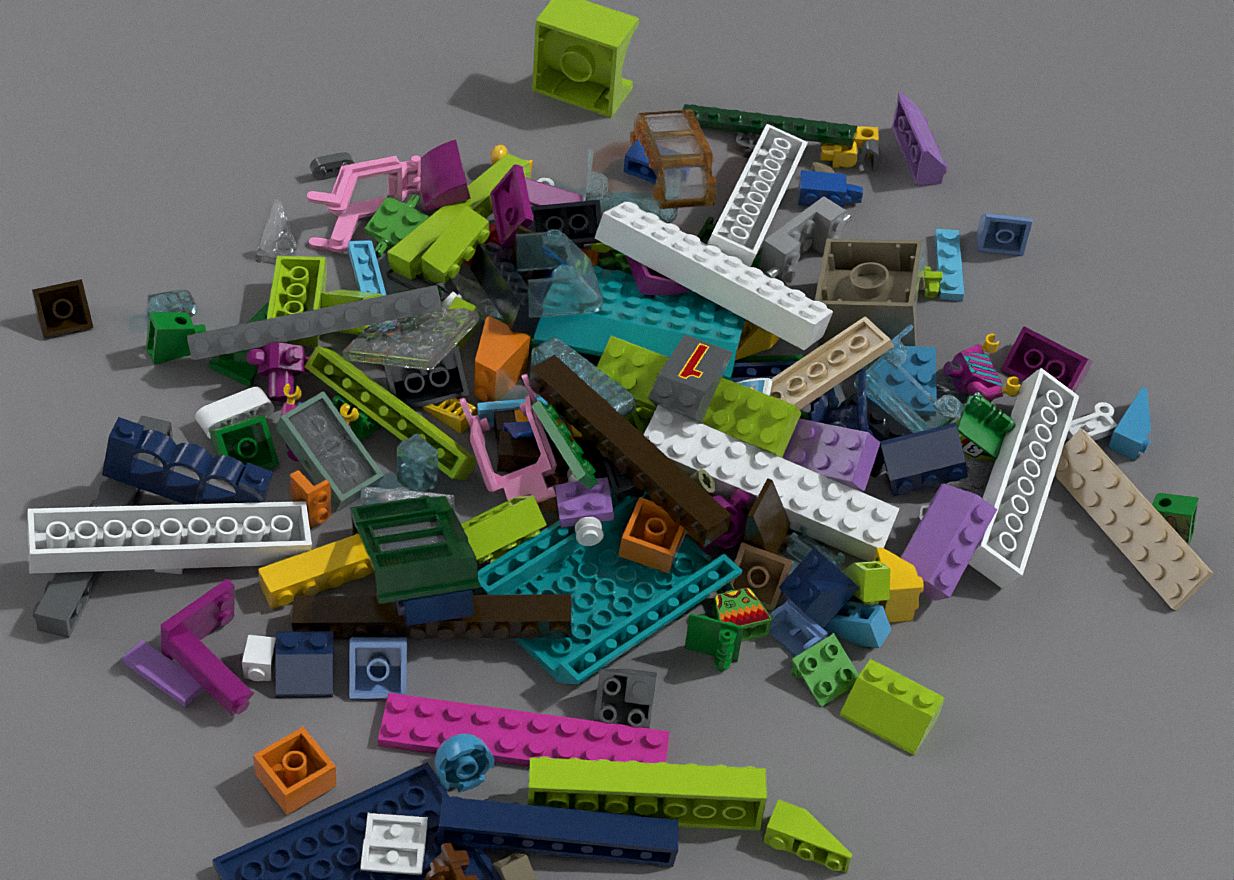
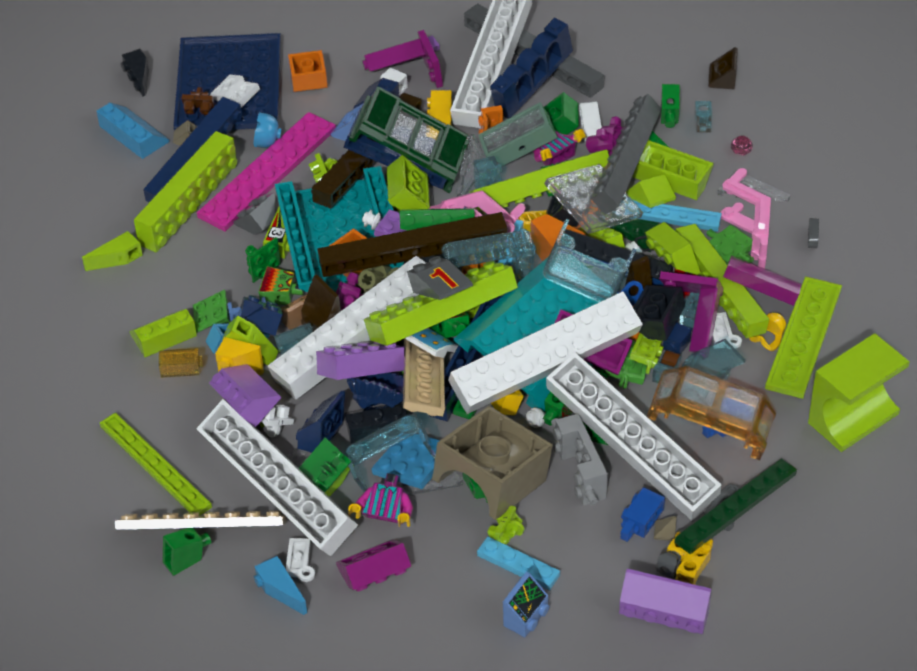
camera: 125 degrees right, 0 degrees up
(203, 264) = (741, 145): none -> clear pink plate
(485, 671) = (320, 165): none -> lime hips
(520, 137) = (803, 337): none -> lime plate
(656, 653) = (277, 230): none -> slope
(929, 660) = (180, 362): none -> clear yellow brick
(1079, 621) = (155, 464): none -> lime tile

